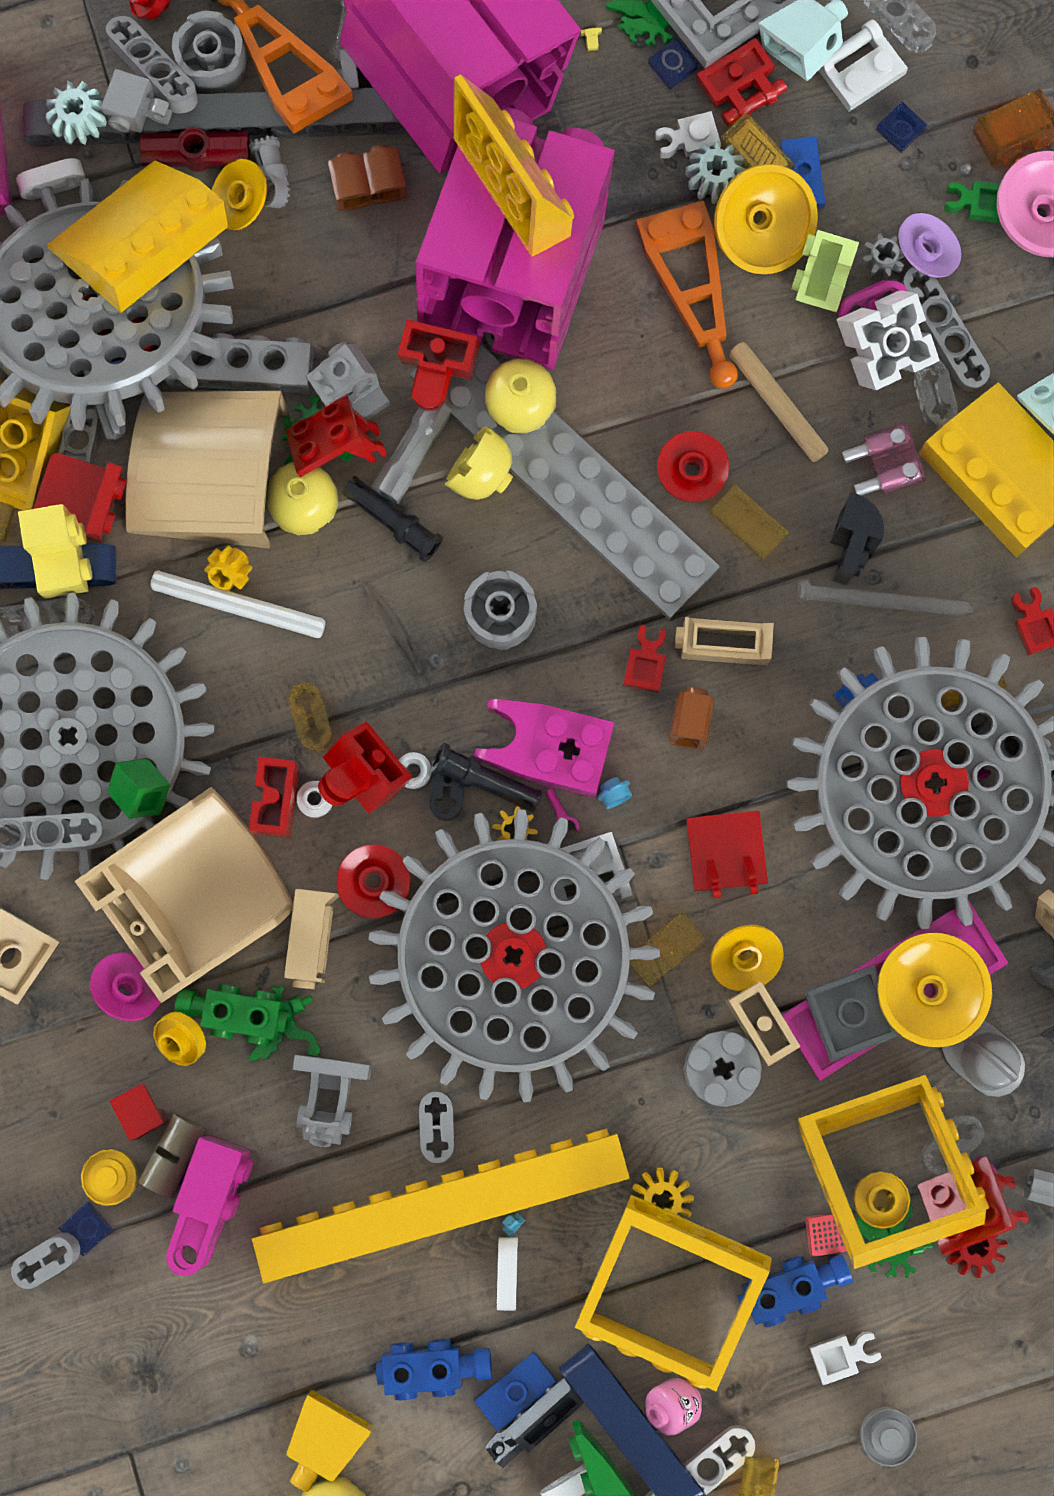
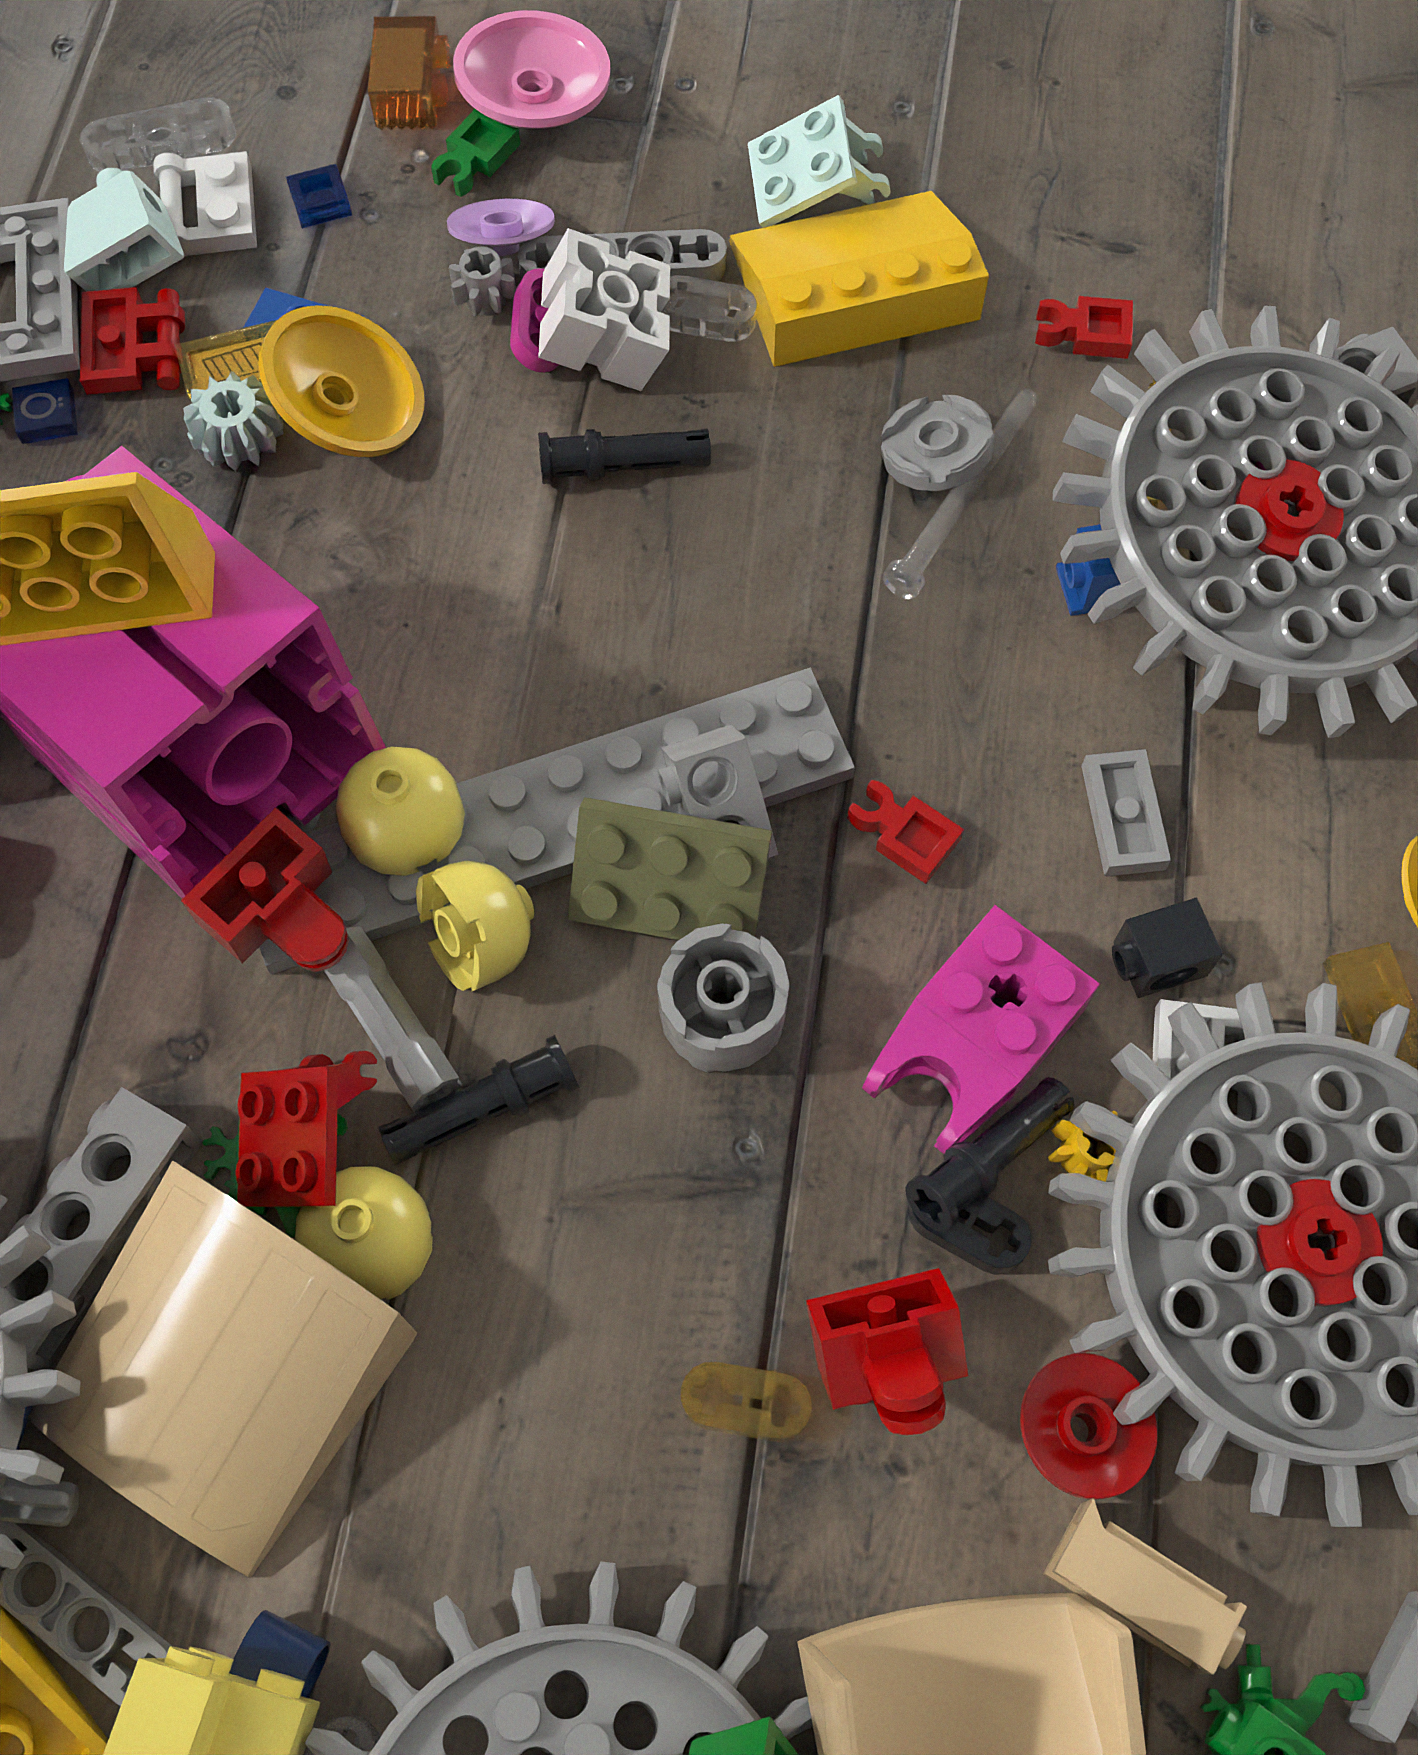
camera: 65 degrees left, 15 degrees down
(84, 491) = (130, 1613): red bracket -> none
(228, 568) = (418, 1417): yellow gear -> none
(238, 604) = (482, 1438): white axle -> none
(279, 785) = (851, 1510): red brick -> none
(311, 810) = (887, 1484): white plate -> none
(347, 372) = (209, 1043): light grey tile -> none
(425, 767) = (921, 1248): white plate -> none
(553, 549) = (665, 871): none -> olive plate
(558, 809) = (1098, 1068): dark pink hand -> none
(607, 557) = (730, 795): none -> light grey brick
(614, 792) = (1100, 964): medium azure plate -> none
(642, 822) = (1166, 948): none -> black brick
(675, 230) = (285, 498): orange plate -> none
(687, 638) = (905, 756): tan window -> none
(690, 135) = (160, 432): white plate -> none
(691, 719) = (1037, 794): dark orange brick -> none
(698, 450) = (642, 613): red dish -> none
(715, 772) = (1125, 813): none -> light grey plate
(727, 852) = (1263, 852): red plate -> none
(749, 522) = (764, 602): clear yellow plate -> none
(778, 402) = (607, 492): tan axle -> none
(797, 382) = (599, 454): none -> black pin
(825, 271) = (455, 347): yellowish green cylinder -> none
(859, 532) = (863, 466): black brick -> none
(893, 459) = (772, 389): clear pink piece -> none
(905, 570) = (937, 443): none -> light grey tile

